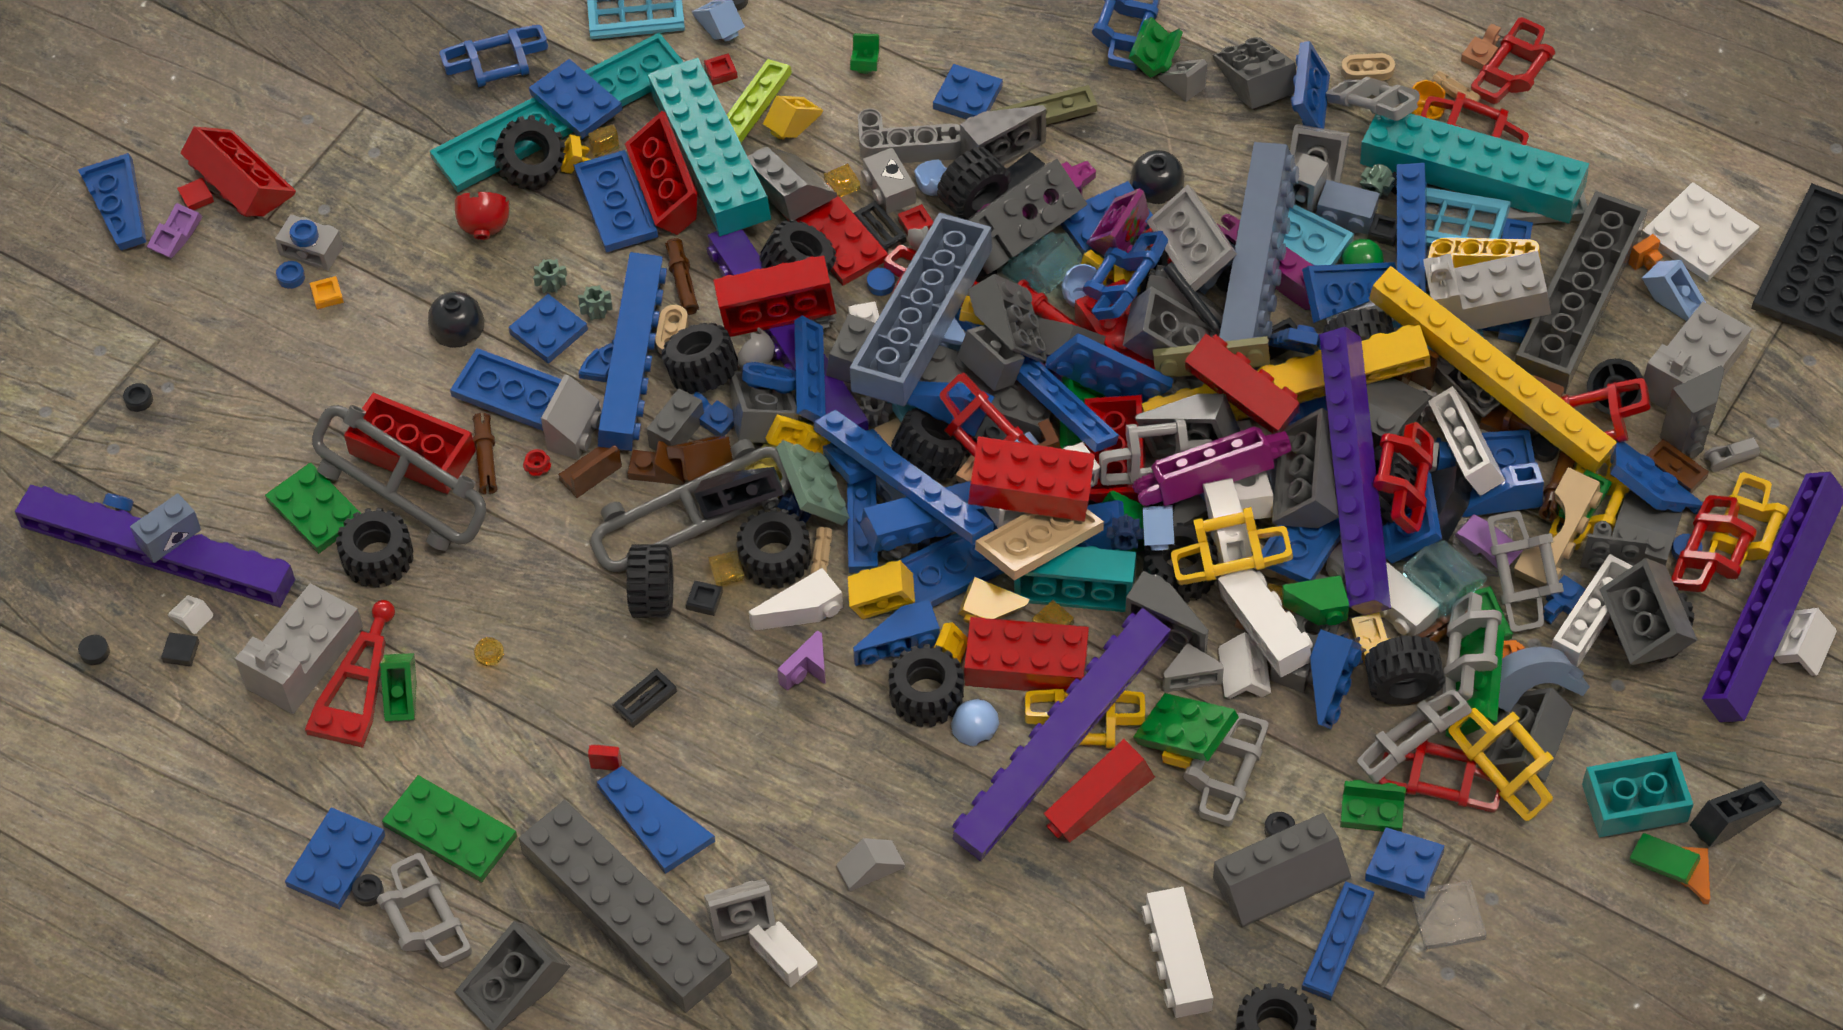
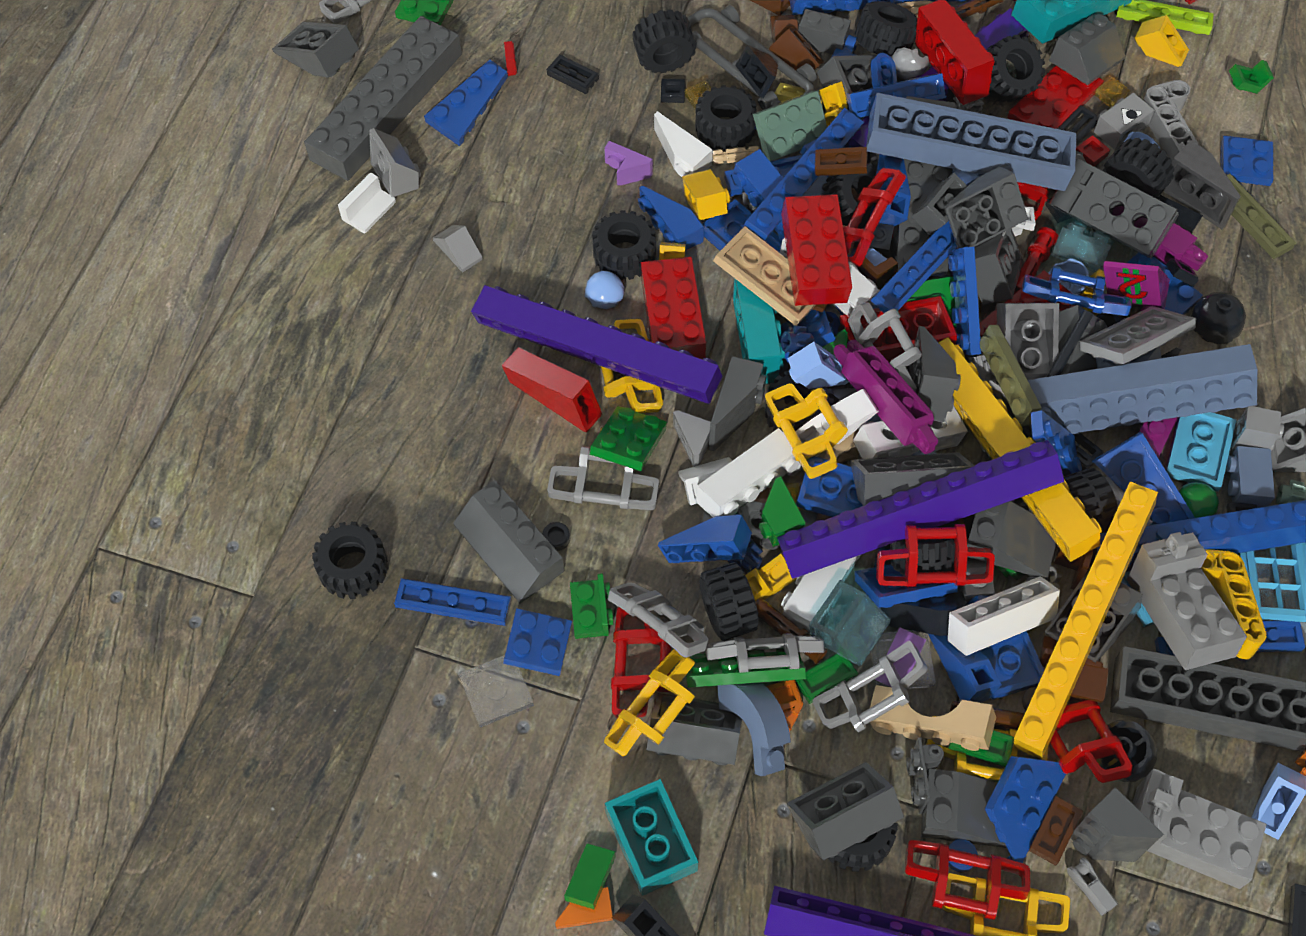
camera: 75 degrees right, 5 degrees up
(910, 432) = (841, 161): none -> reddish brown plate
(989, 601) = (713, 275): yellow slope -> none
(1053, 614) = (719, 327): clear yellow plate -> none
(1099, 188) = (1182, 272): none -> black tile
(1178, 952) = (413, 475): white brick -> none
(1244, 386) = (974, 394): red brick -> none
(1563, 601) = (868, 744): blue plate -> none
(1588, 615) = (830, 759): white brick -> none

